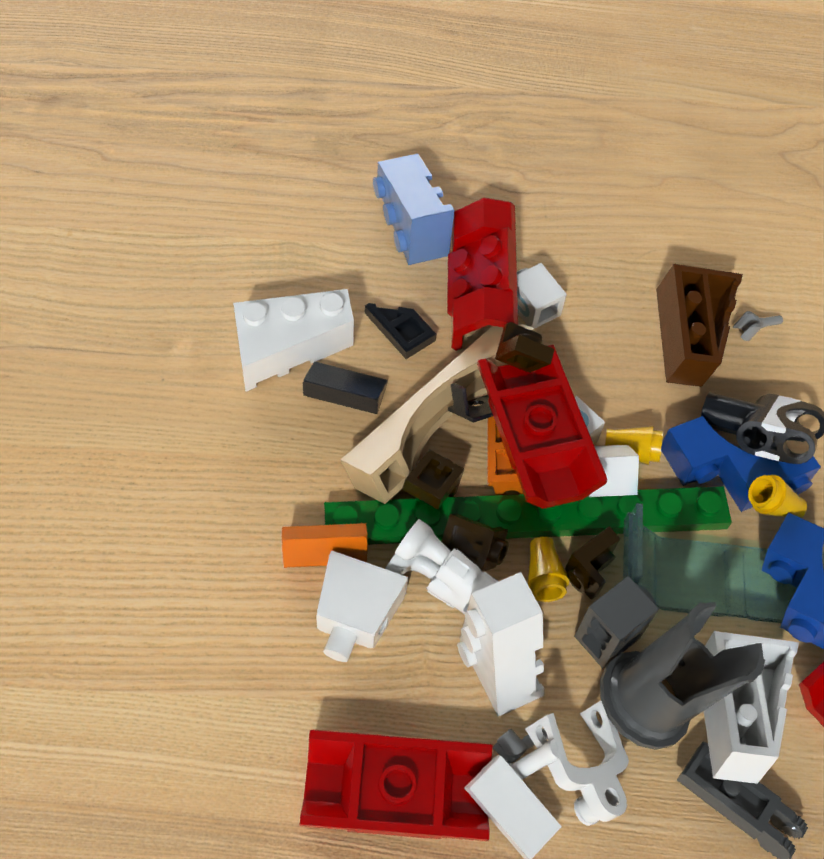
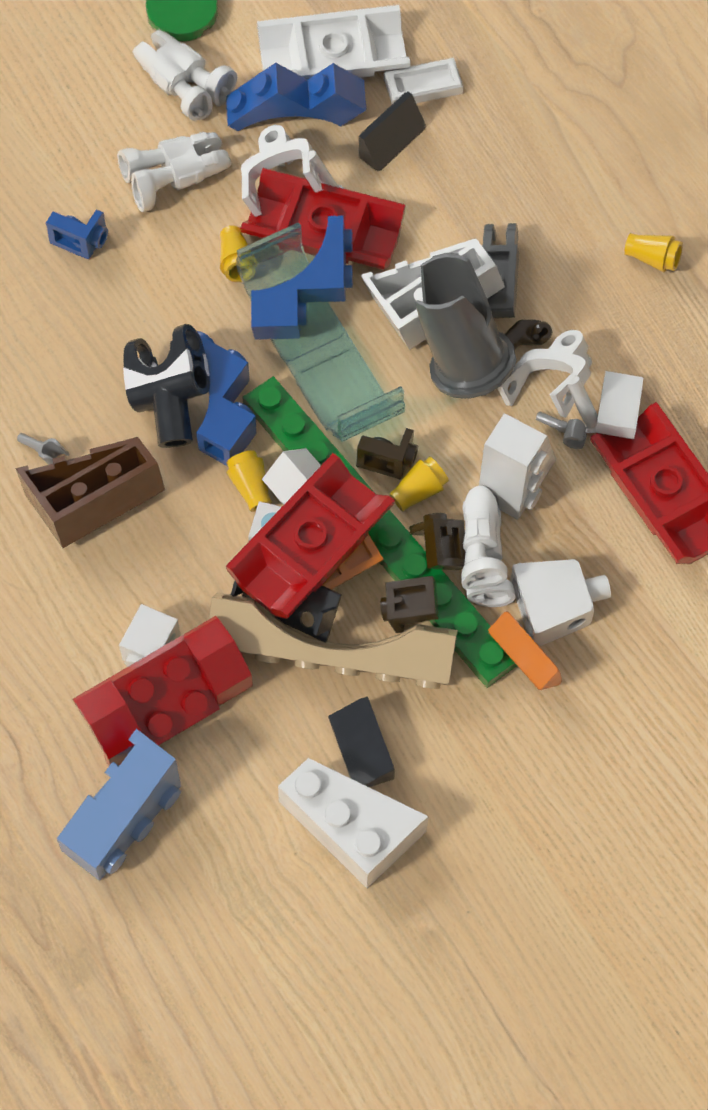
camera: 120 degrees left, 5 degrees up
(402, 328) = (262, 740): black tile -> none
(523, 348) = (259, 580): dark brown bracket -> none
(616, 621) = (435, 401): dark grey brick -> none
(653, 780) = (529, 333): none -> dark brown arm
(775, 497) = (245, 341): yellow cone -> none

